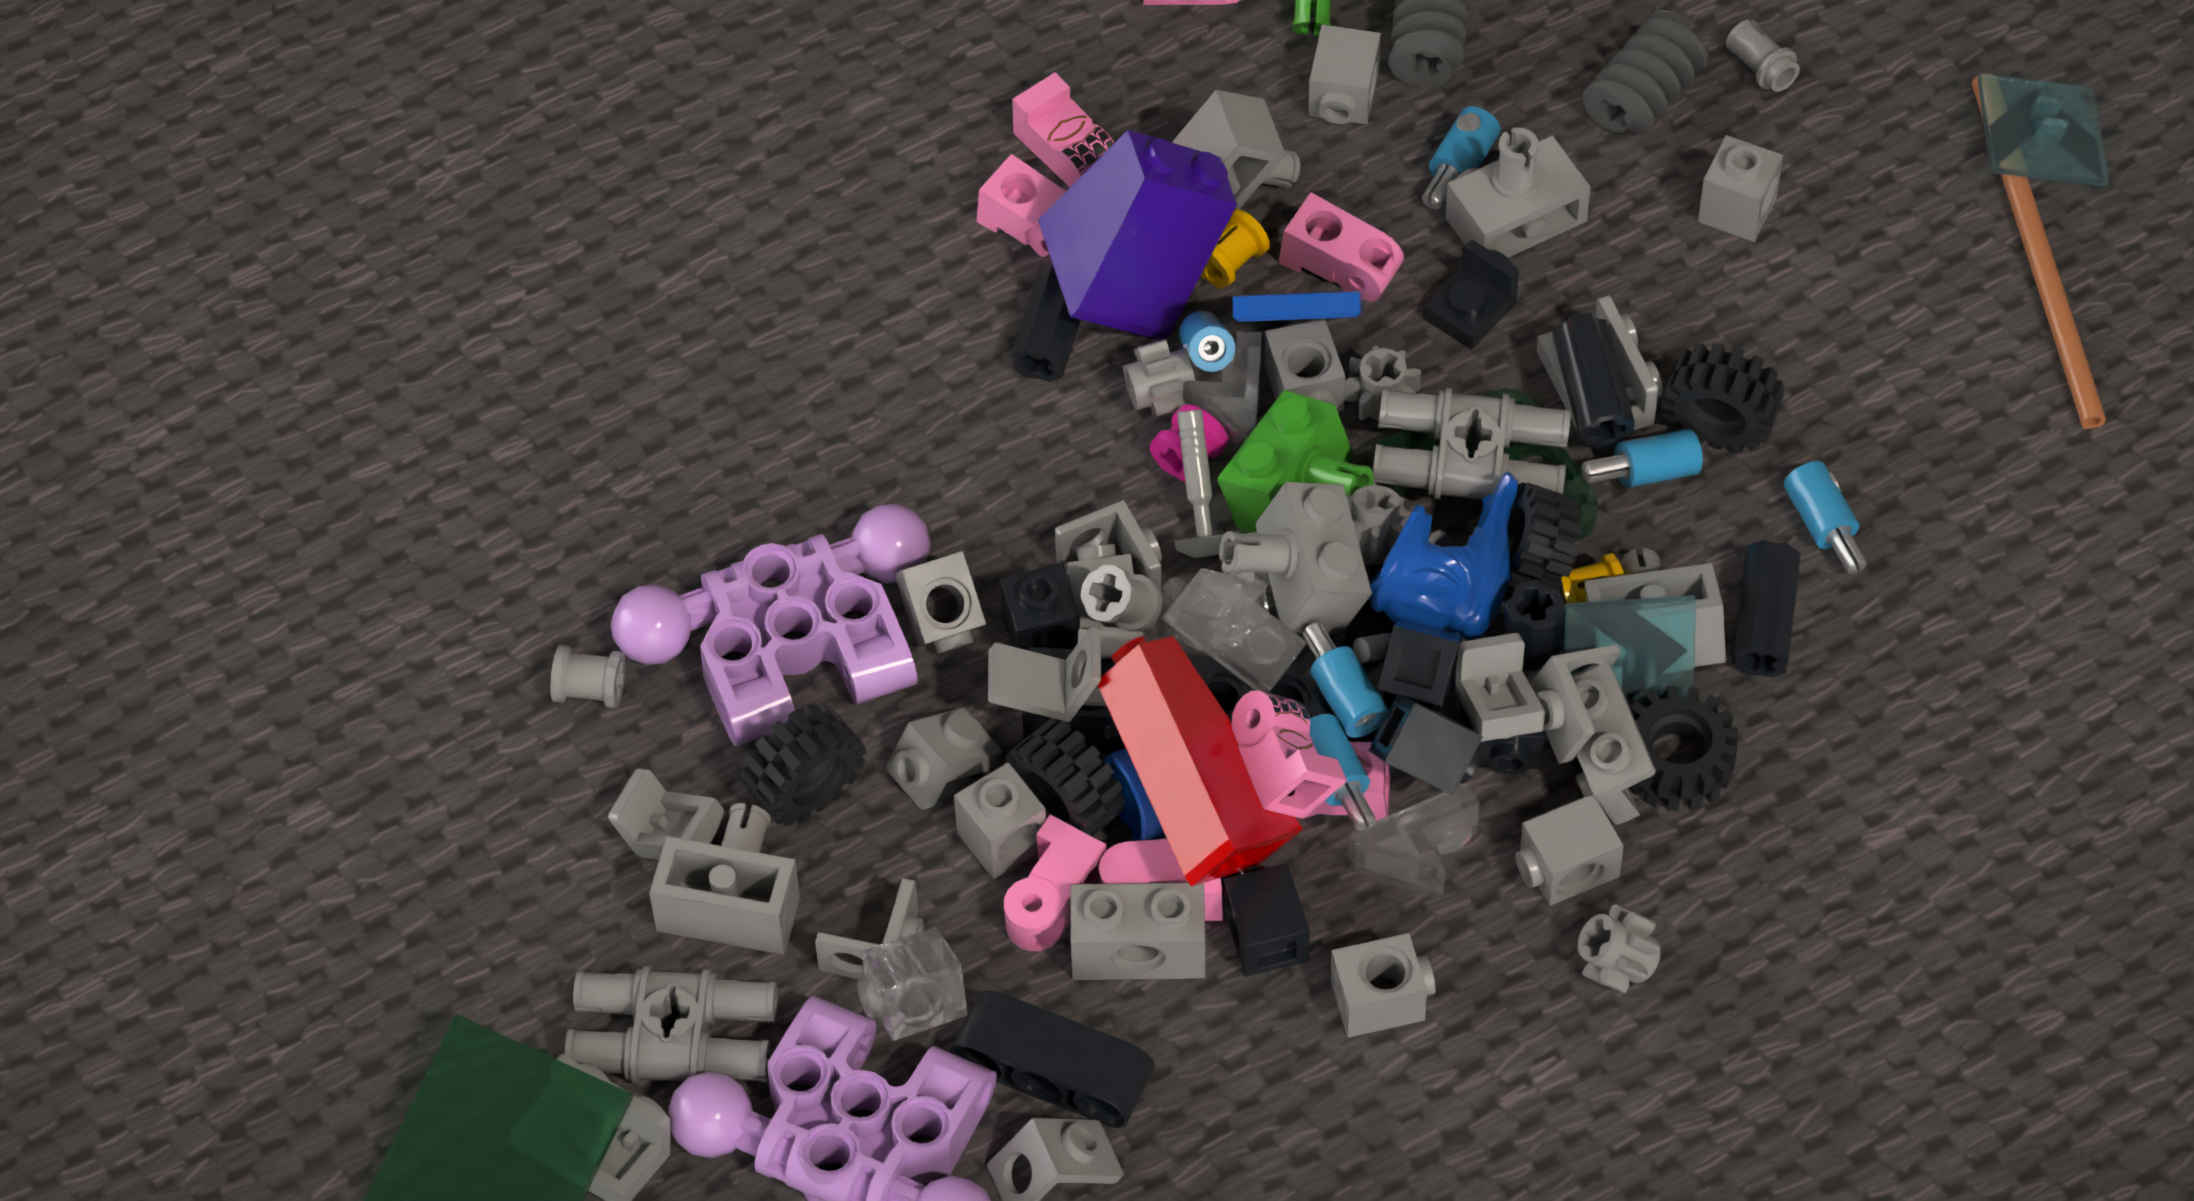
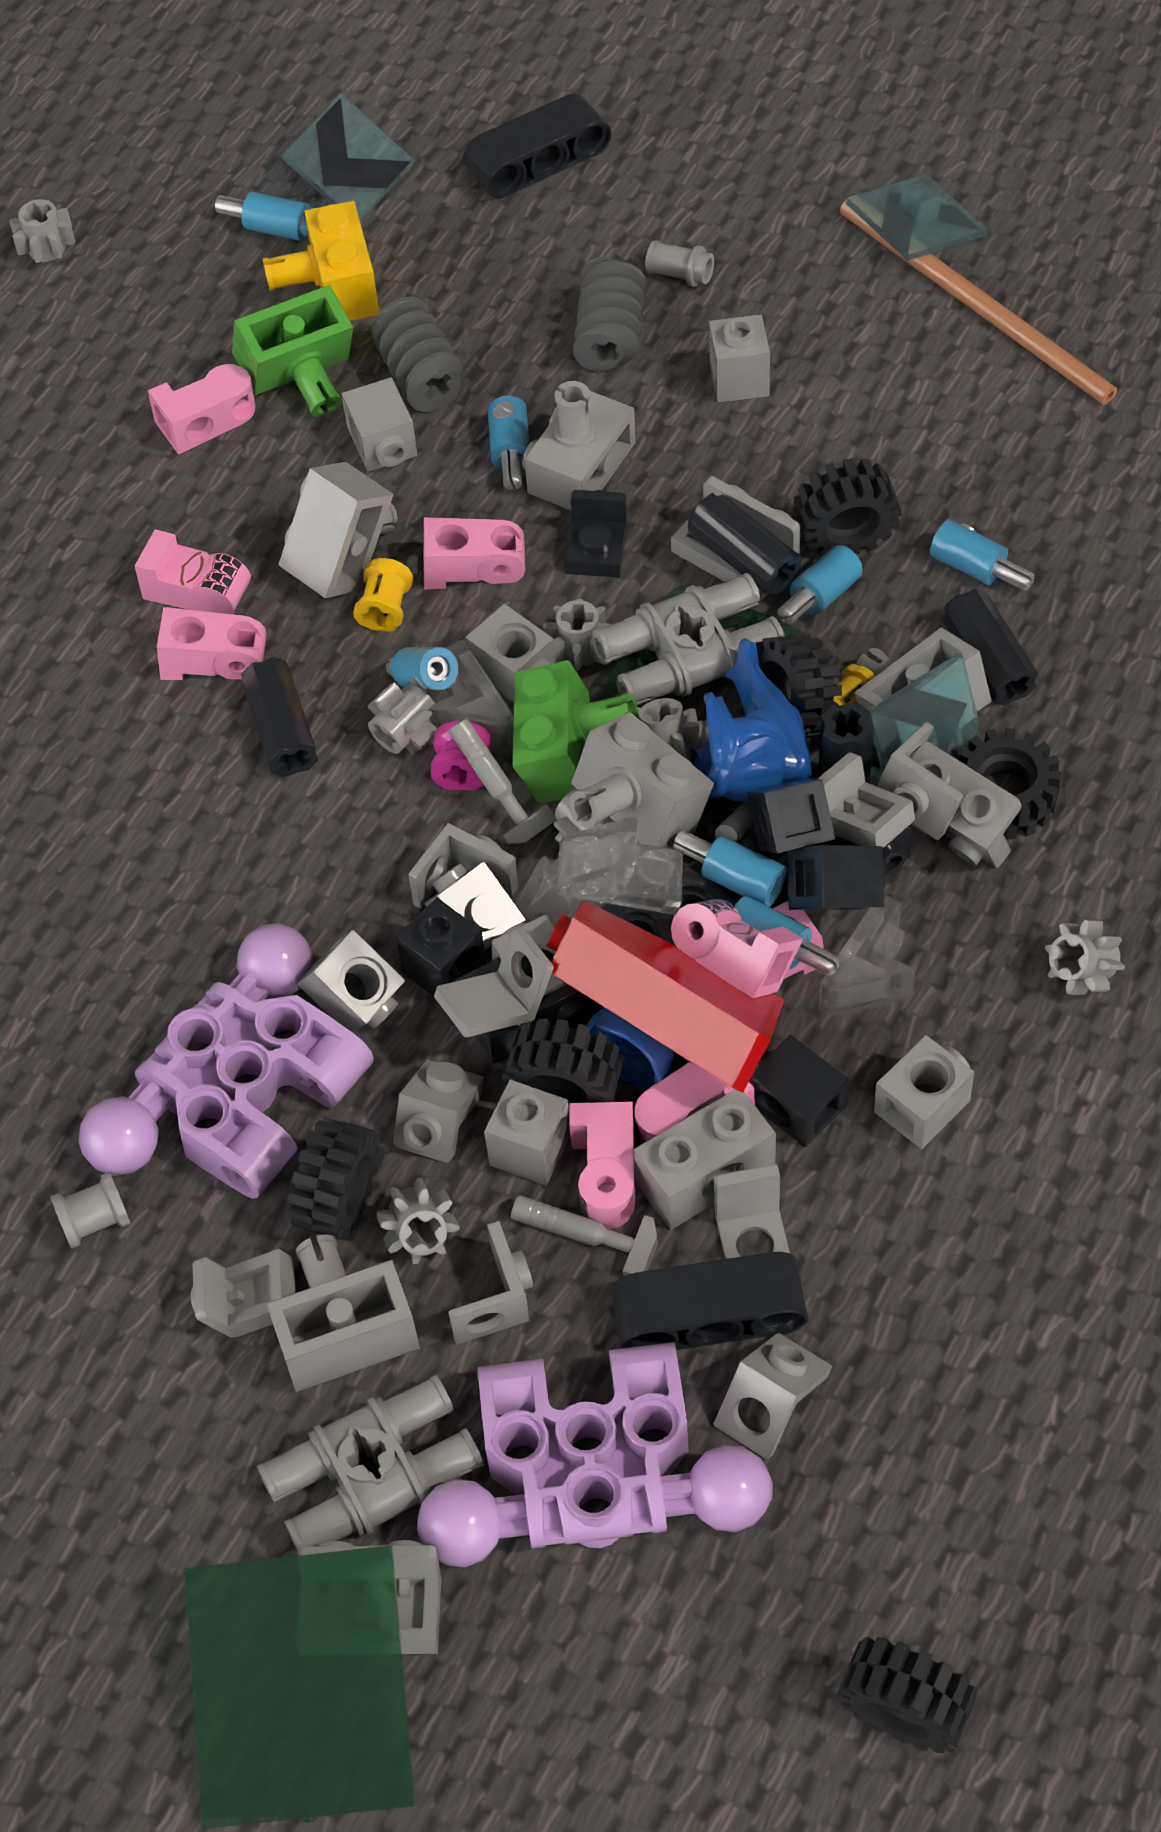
camera: 30 degrees left, 0 degrees up
(842, 856) = (405, 1233): none -> light grey gear
(912, 984) = (559, 1307): clear brick -> none
(1031, 979) = (590, 1231): none -> light grey piece
(1121, 598) = (497, 883): light grey bush -> none
(1138, 233) = (315, 609): dark purple slope -> none
(1148, 992) = (746, 1203): none -> light grey bracket
(1298, 305) = (485, 600): blue tile -> none
(1569, 850) = (988, 903): light grey brick -> none

